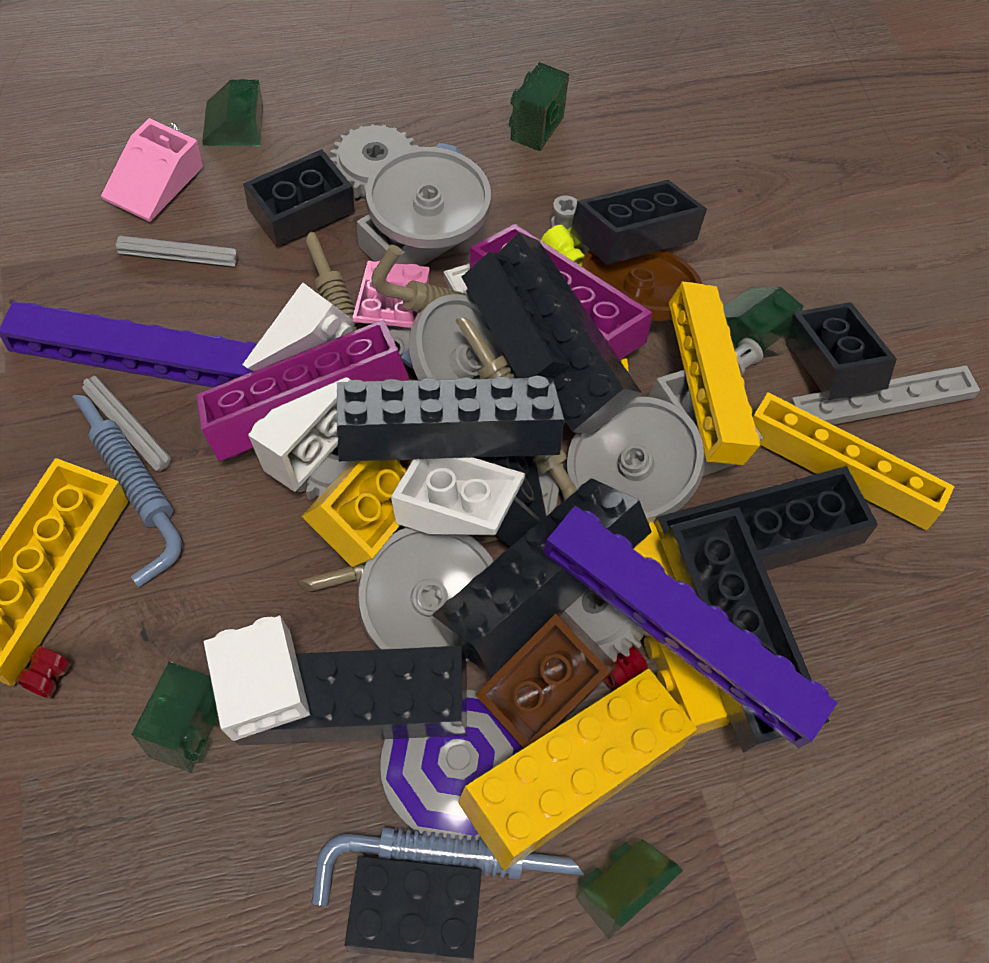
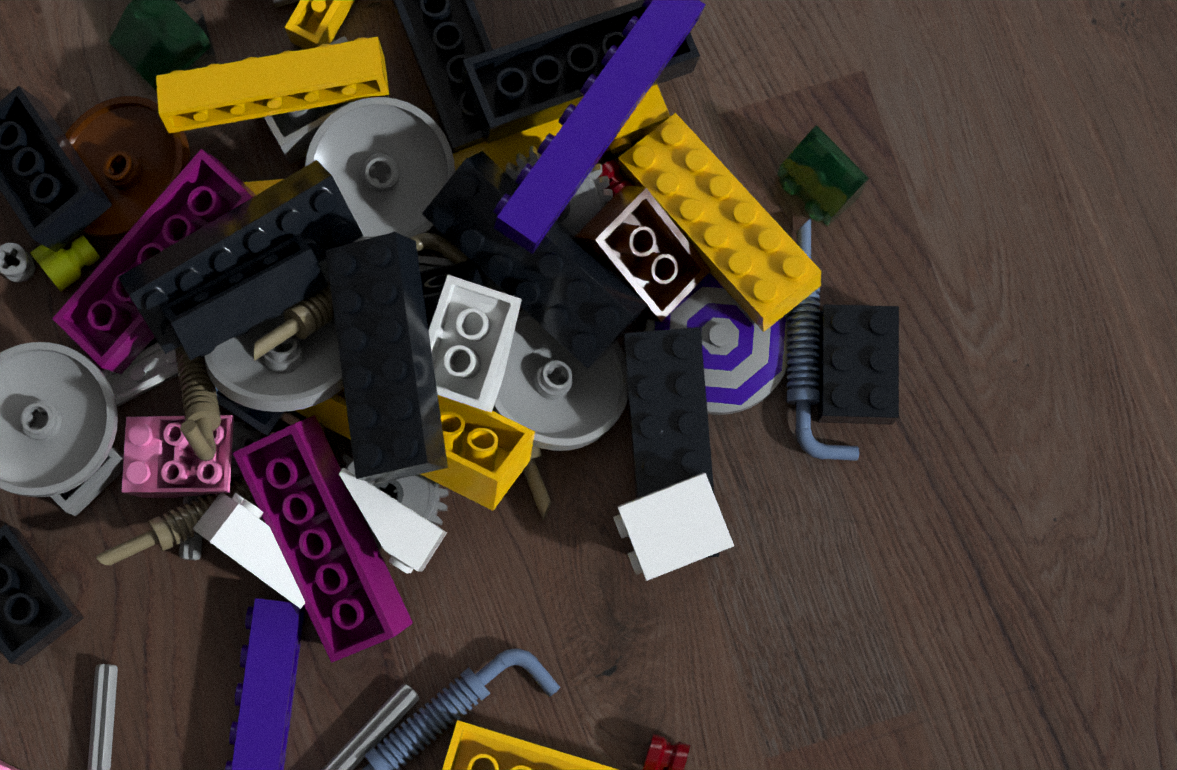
camera: 90 degrees left, 20 degrees up
(178, 718) = (708, 602): clear green brick -> none
(746, 359) = (216, 51): light grey bush -> none

